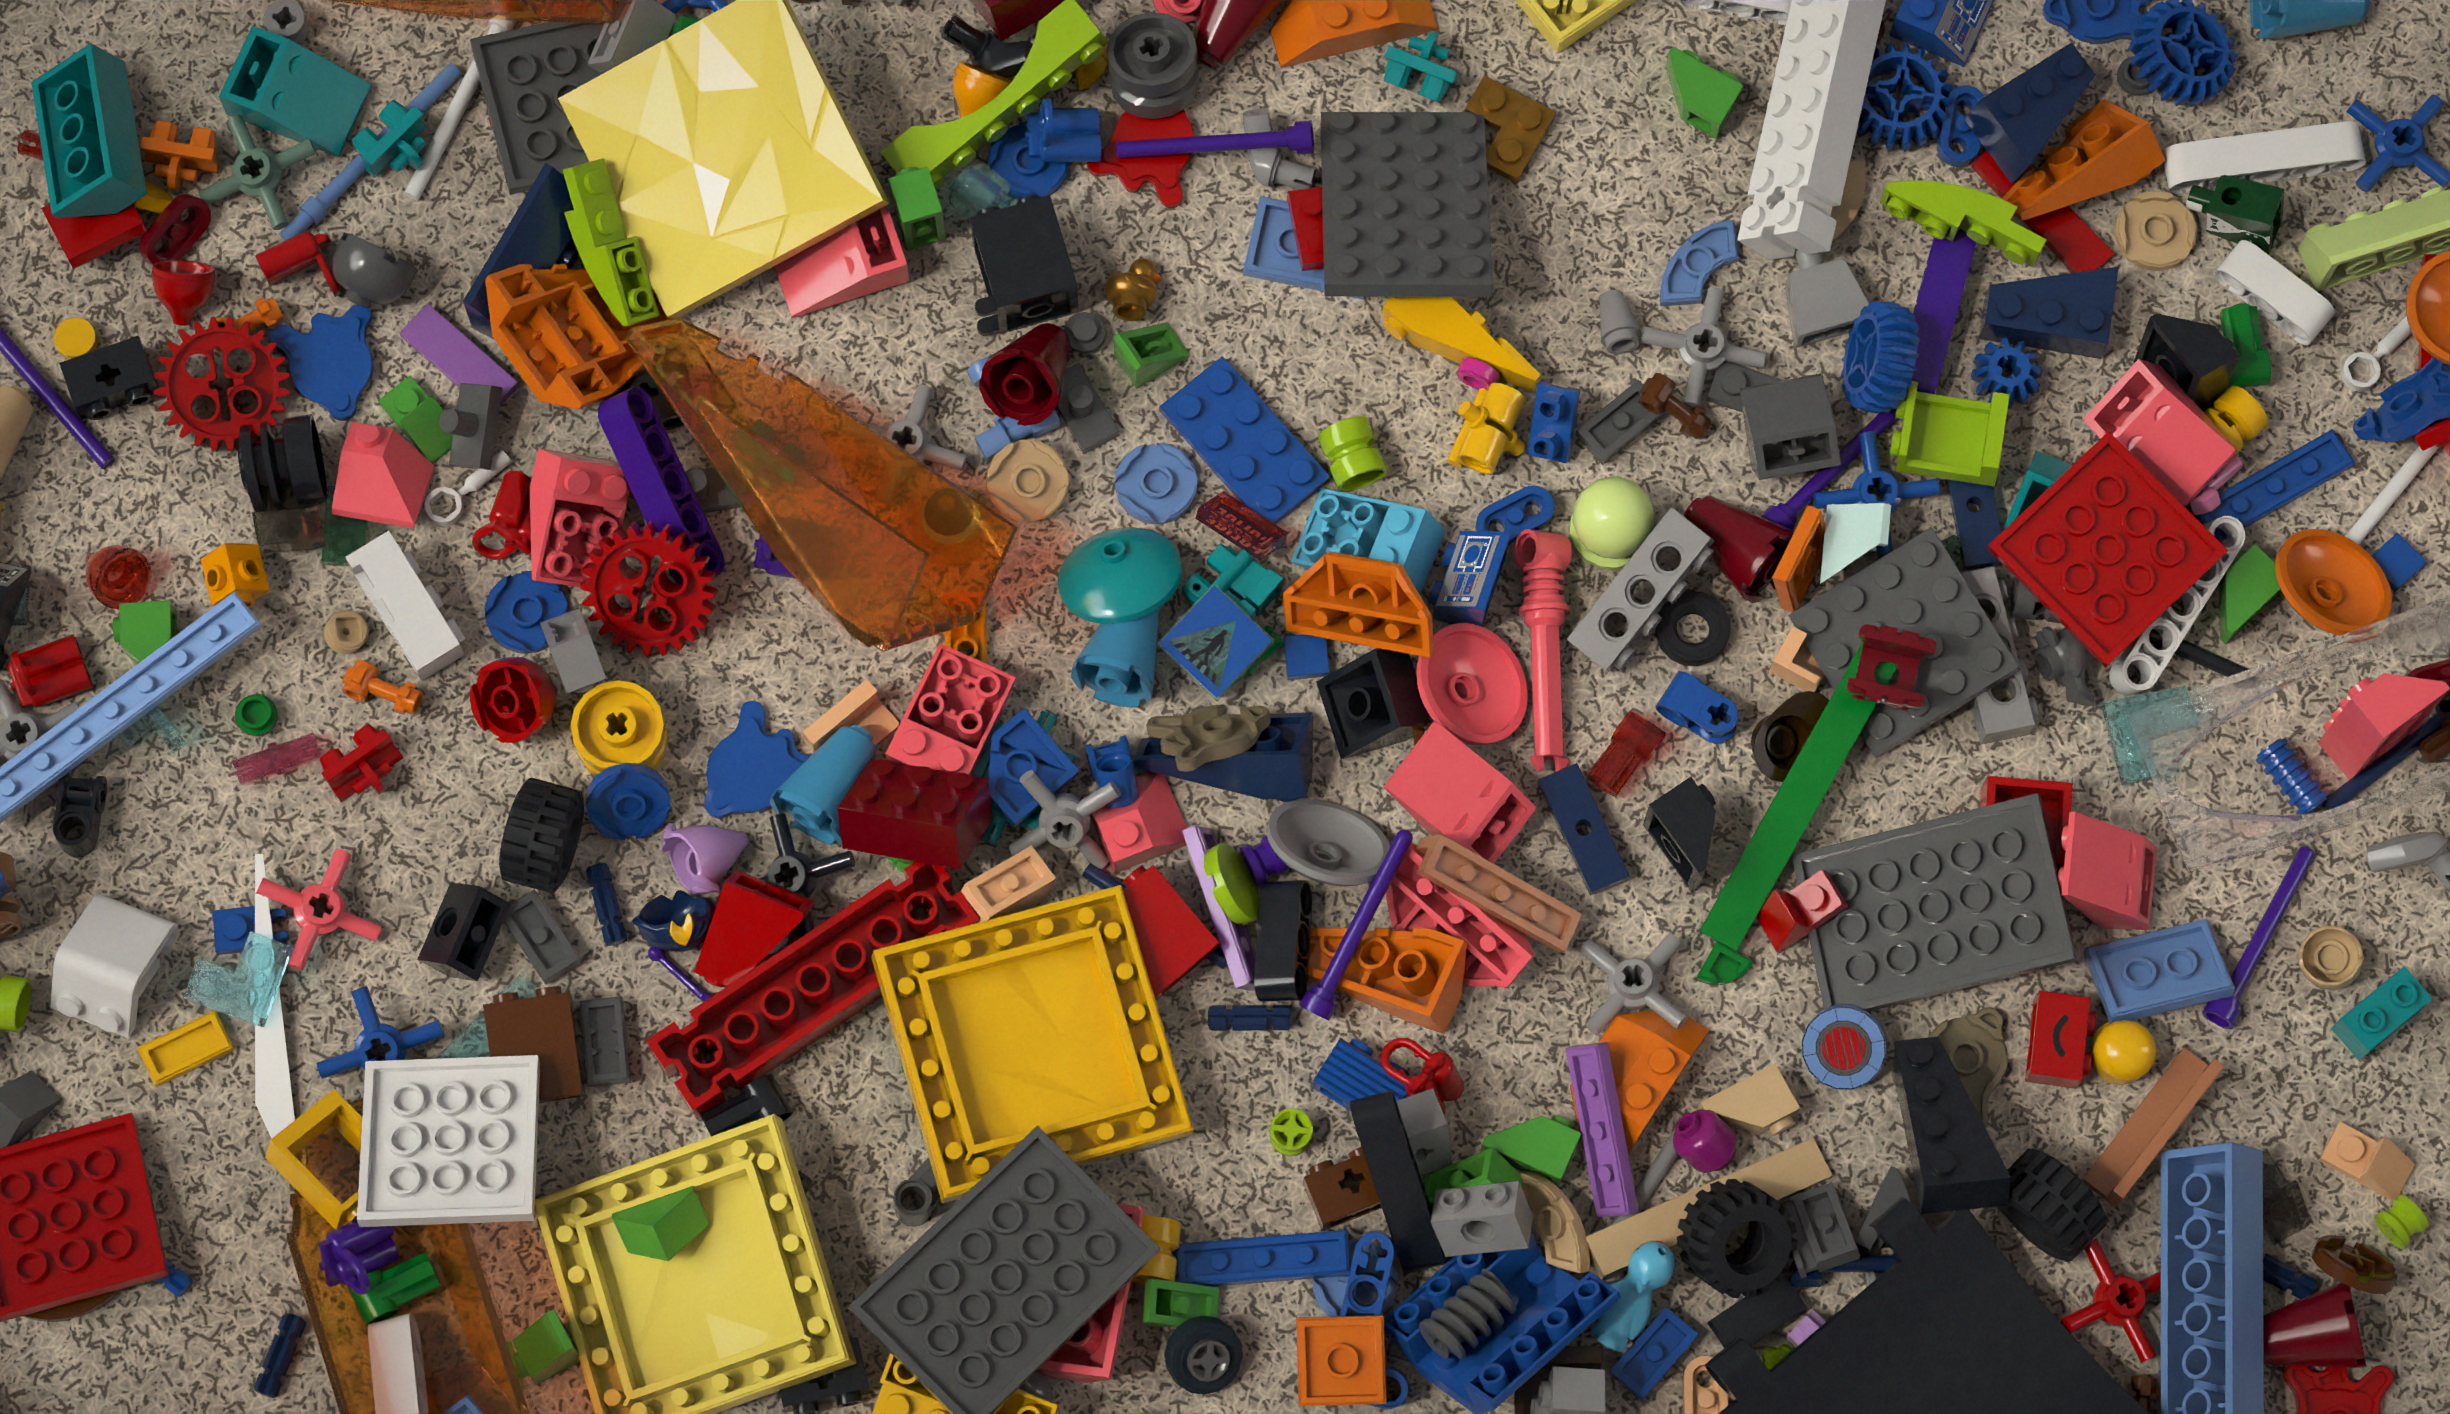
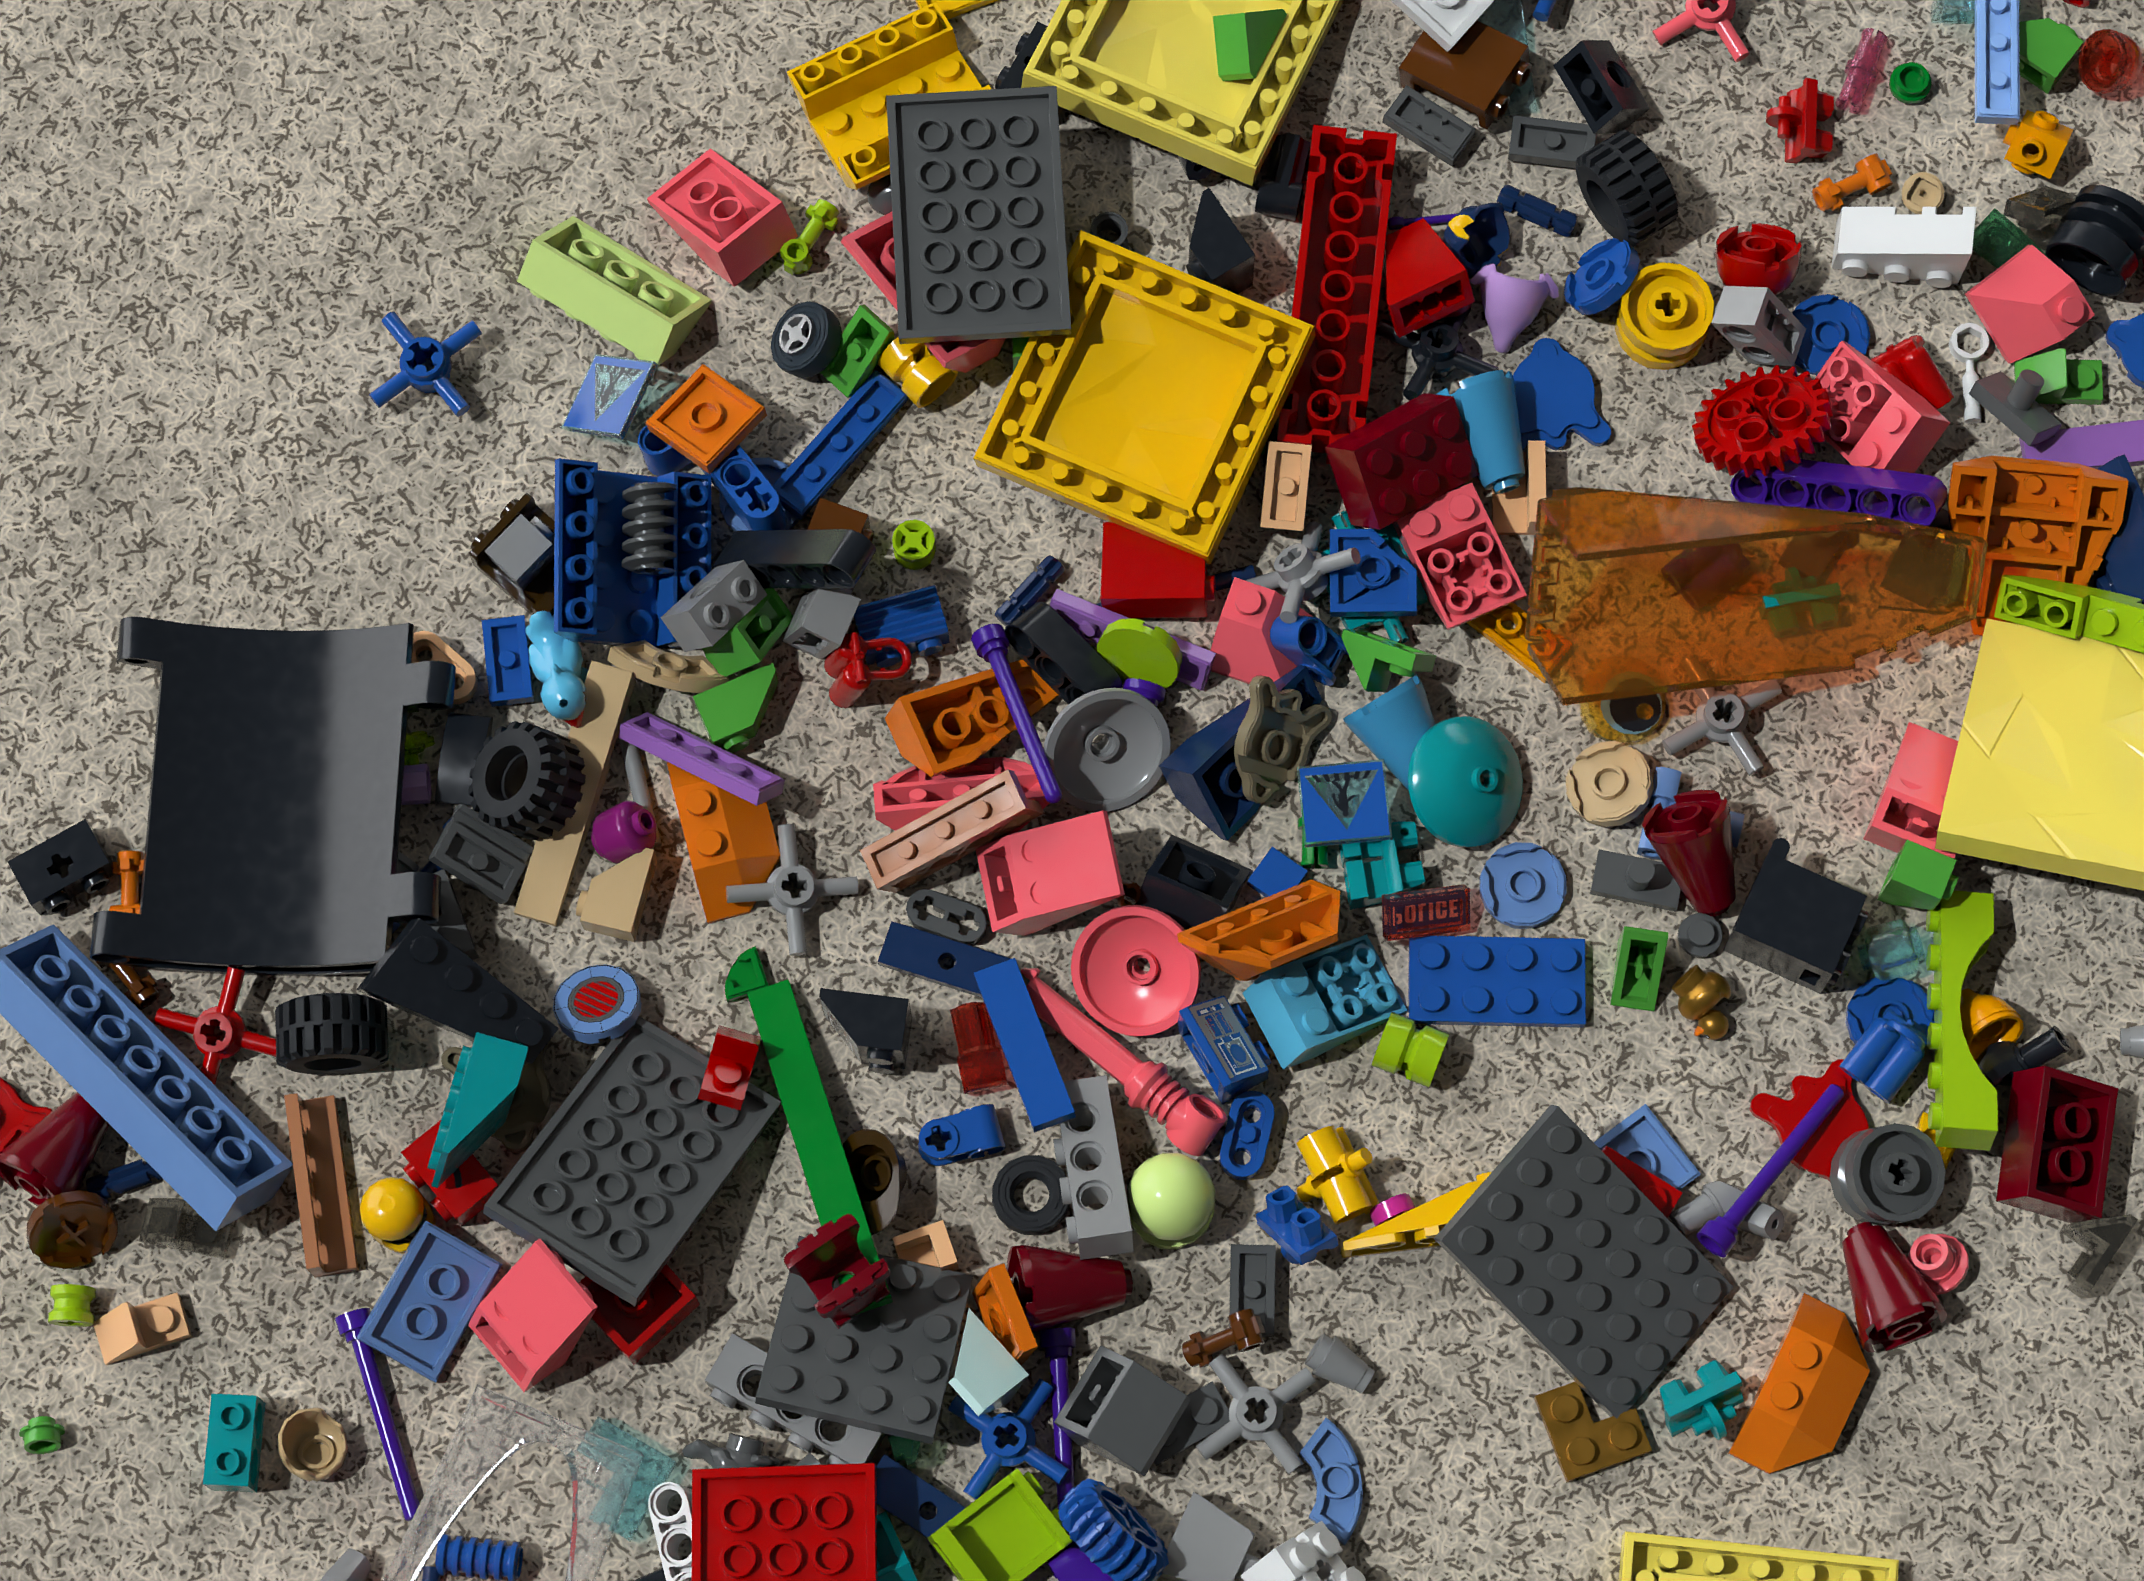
camera: 135 degrees right, 0 degrees up
(863, 1099) = (1218, 249): none -> black slope
(1075, 718) = (1378, 657): none -> bright green slope
(1559, 857) = (950, 908): none -> dark grey beam
(1599, 710) = (1024, 1045): none -> blue tile
(2001, 1042) = (476, 1101): none -> teal slope

